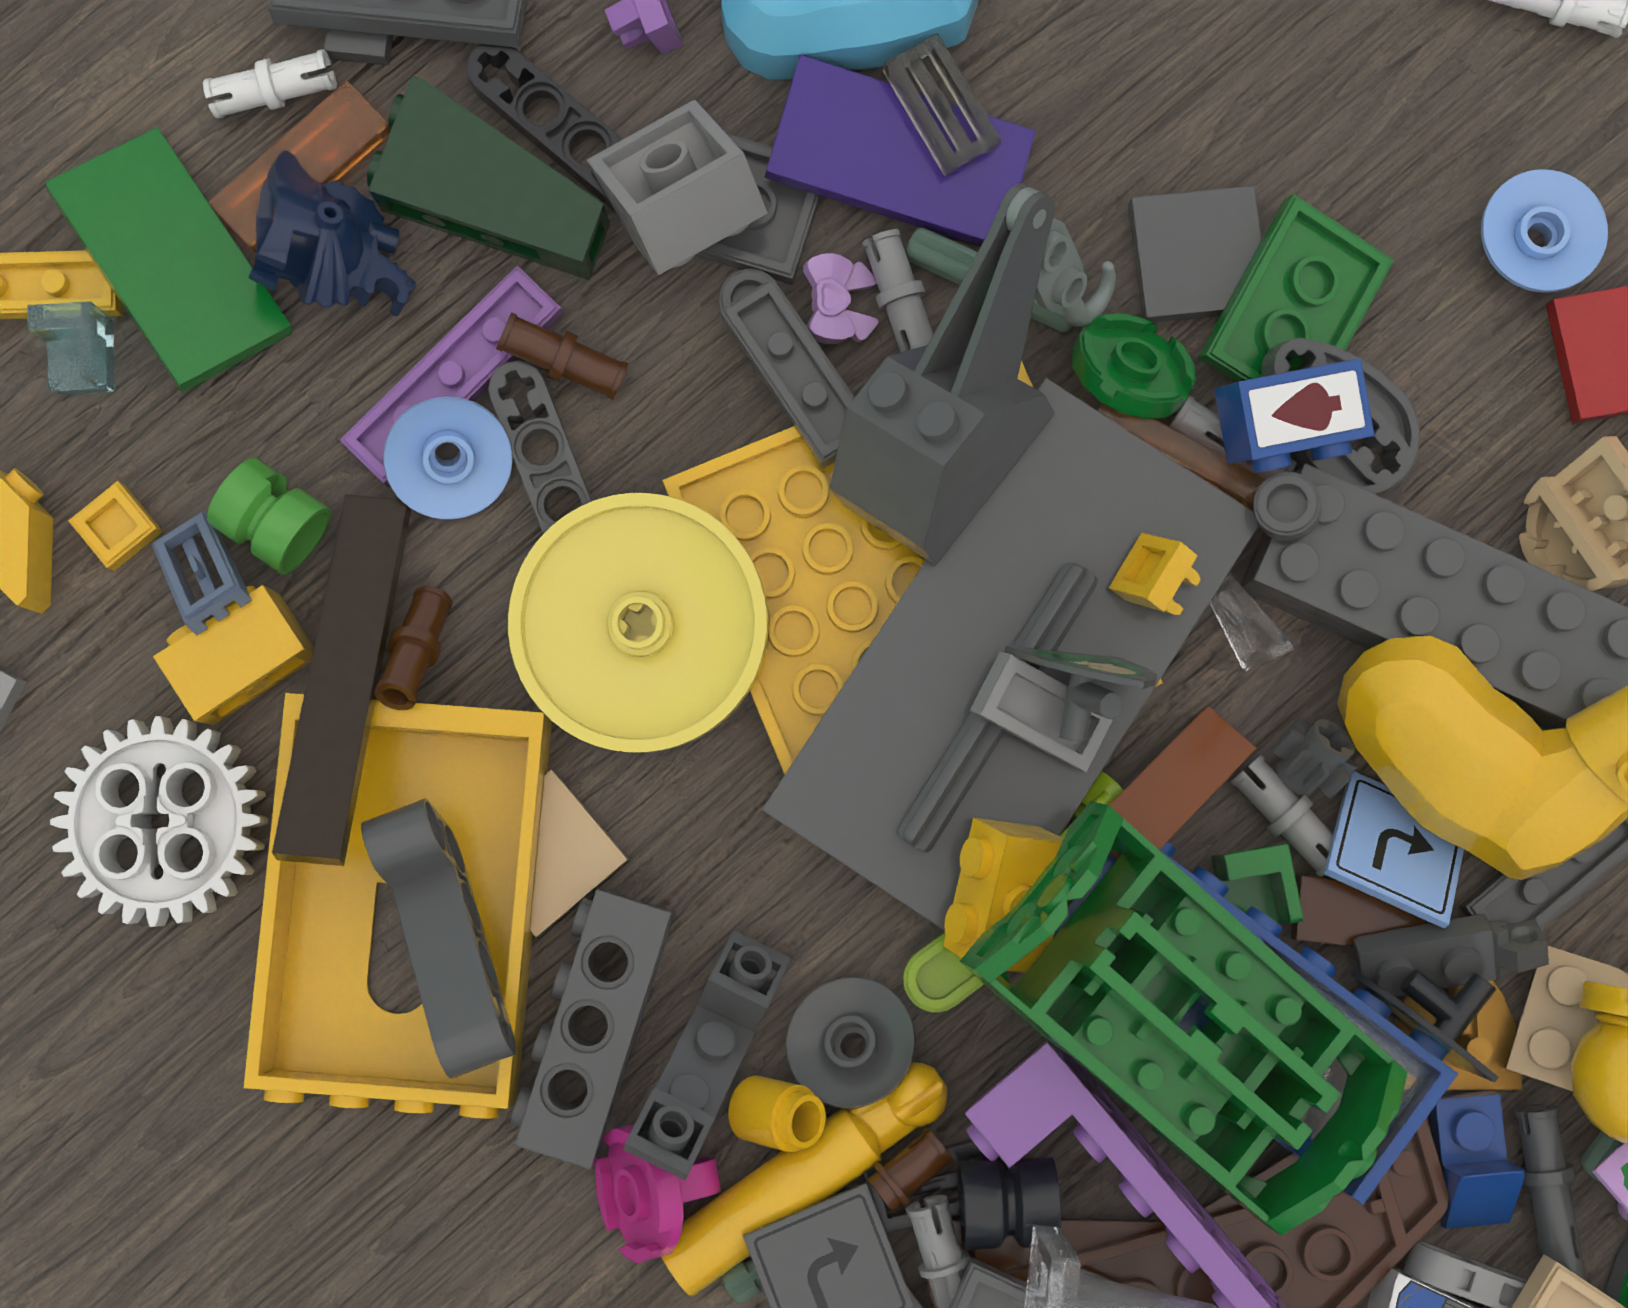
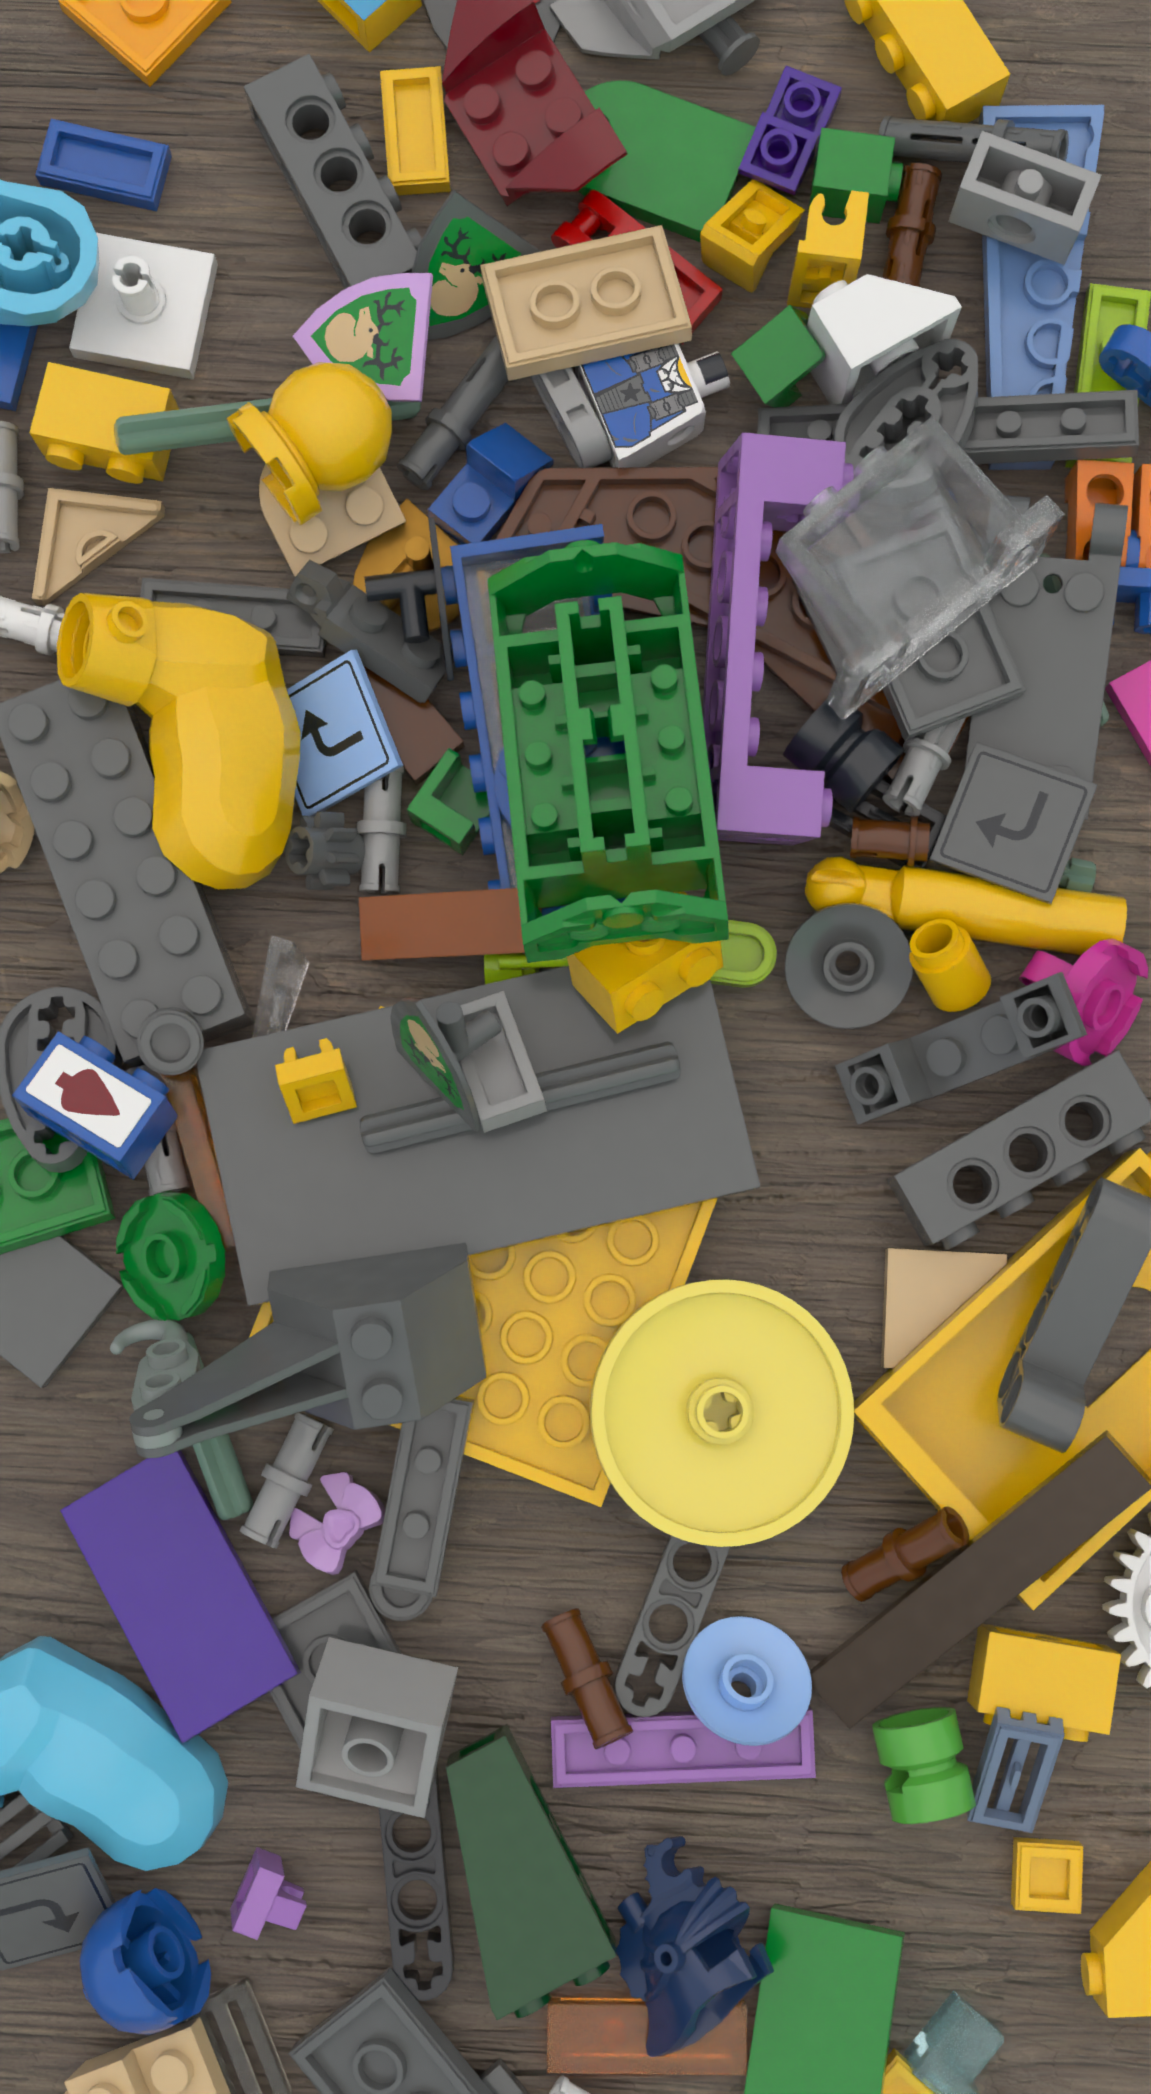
camera: 135 degrees left, 0 degrees up
(920, 115) = (138, 1602): clear smoke tile -> none

